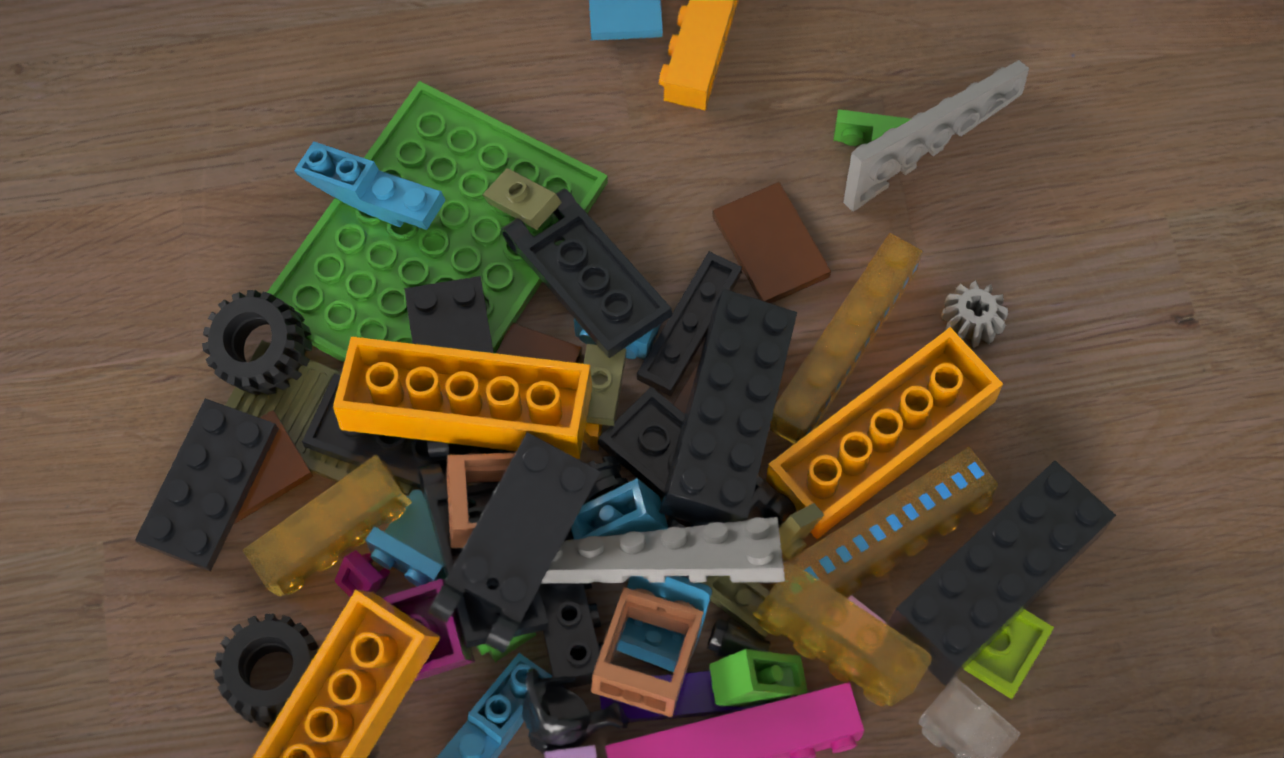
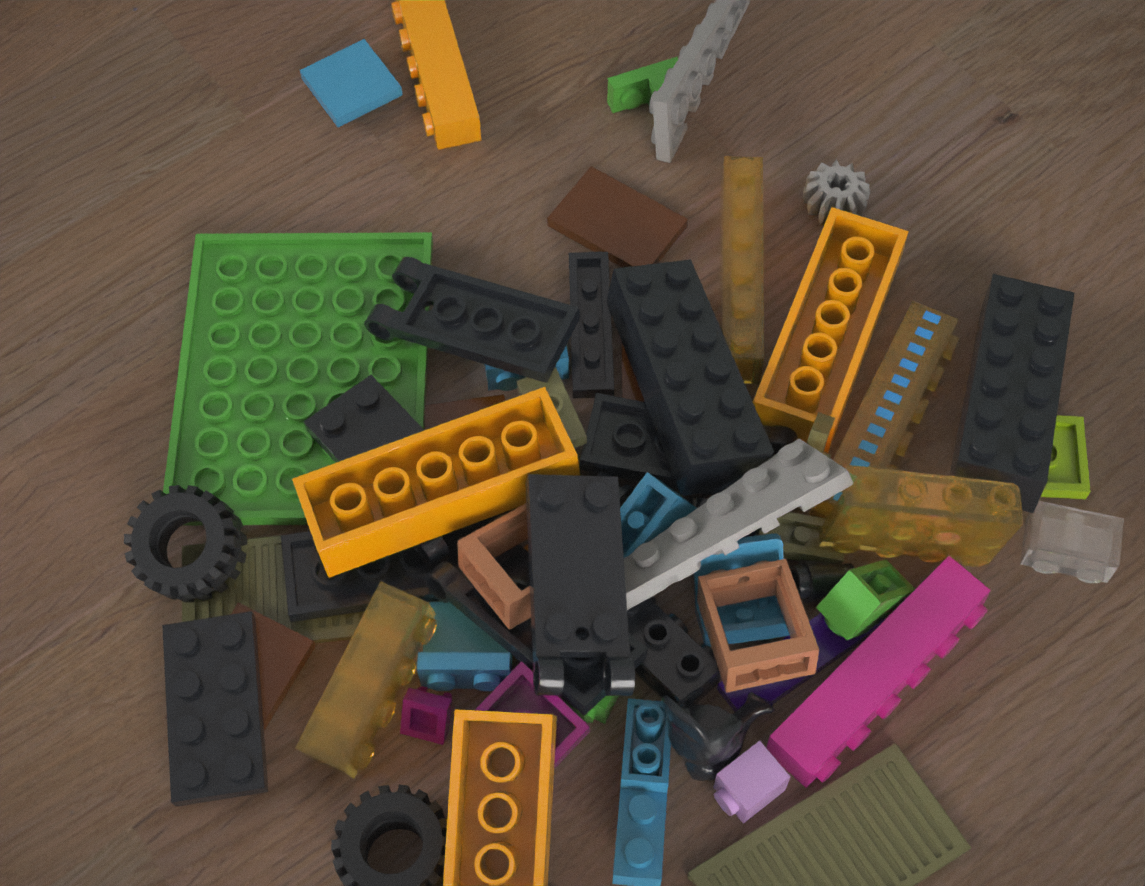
camera: 30 degrees left, 5 degrees down
(369, 189) = (208, 350): dark azure slope -> none
(522, 198) = (368, 285): olive plate -> none

